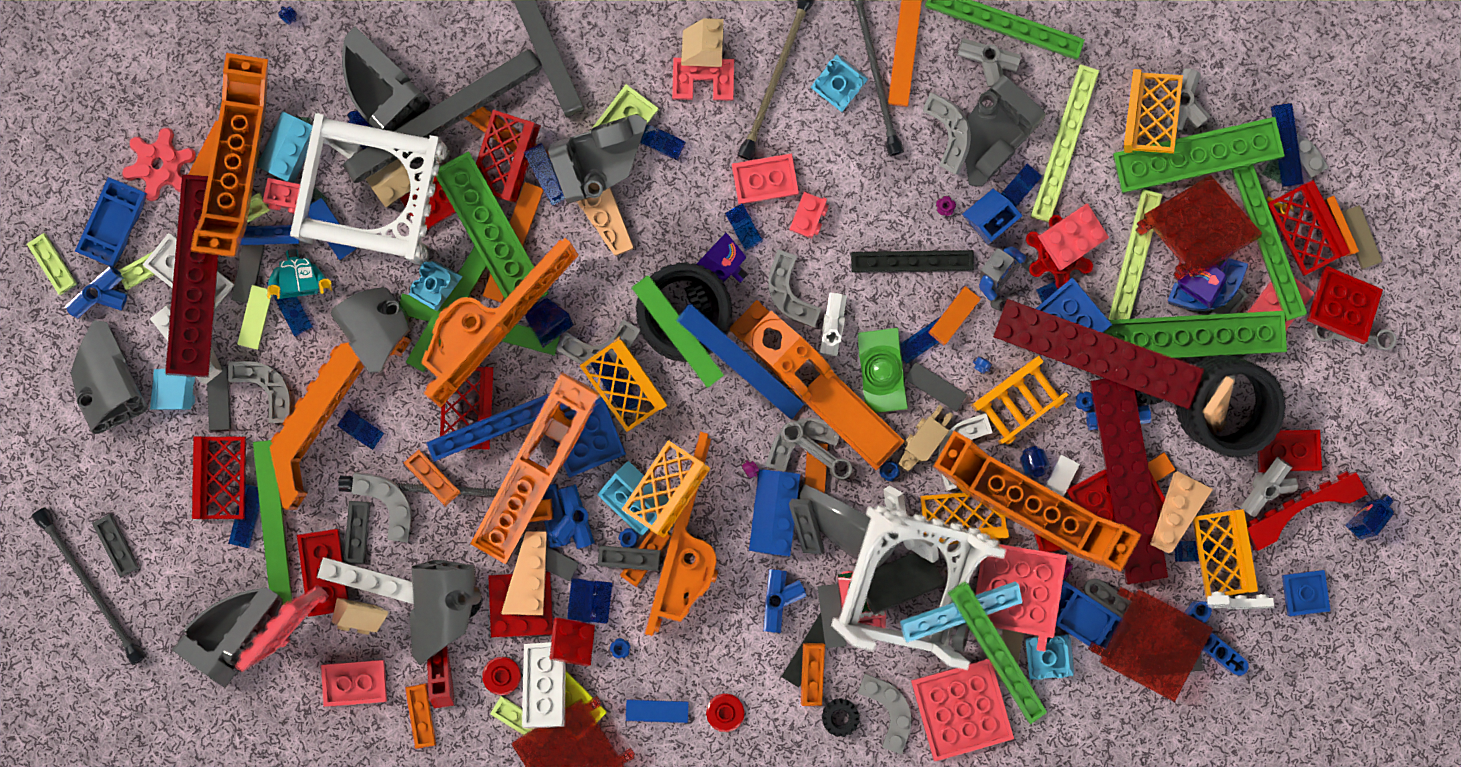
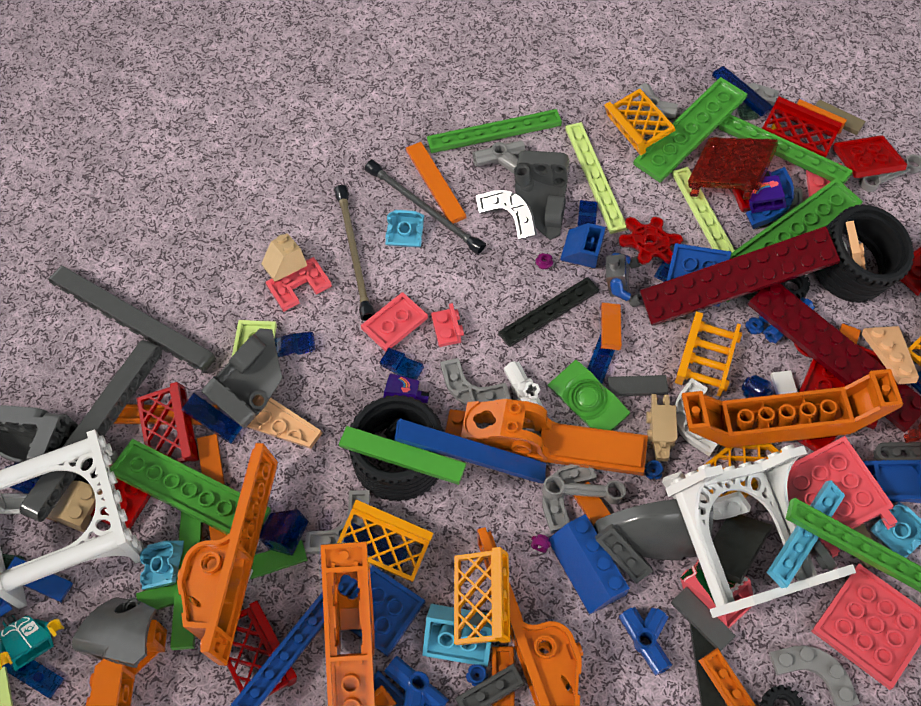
camera: 30 degrees left, 25 degrees down
(982, 365) = (659, 347): blue plate -> none
(1073, 236) = (651, 223): coral plate -> none

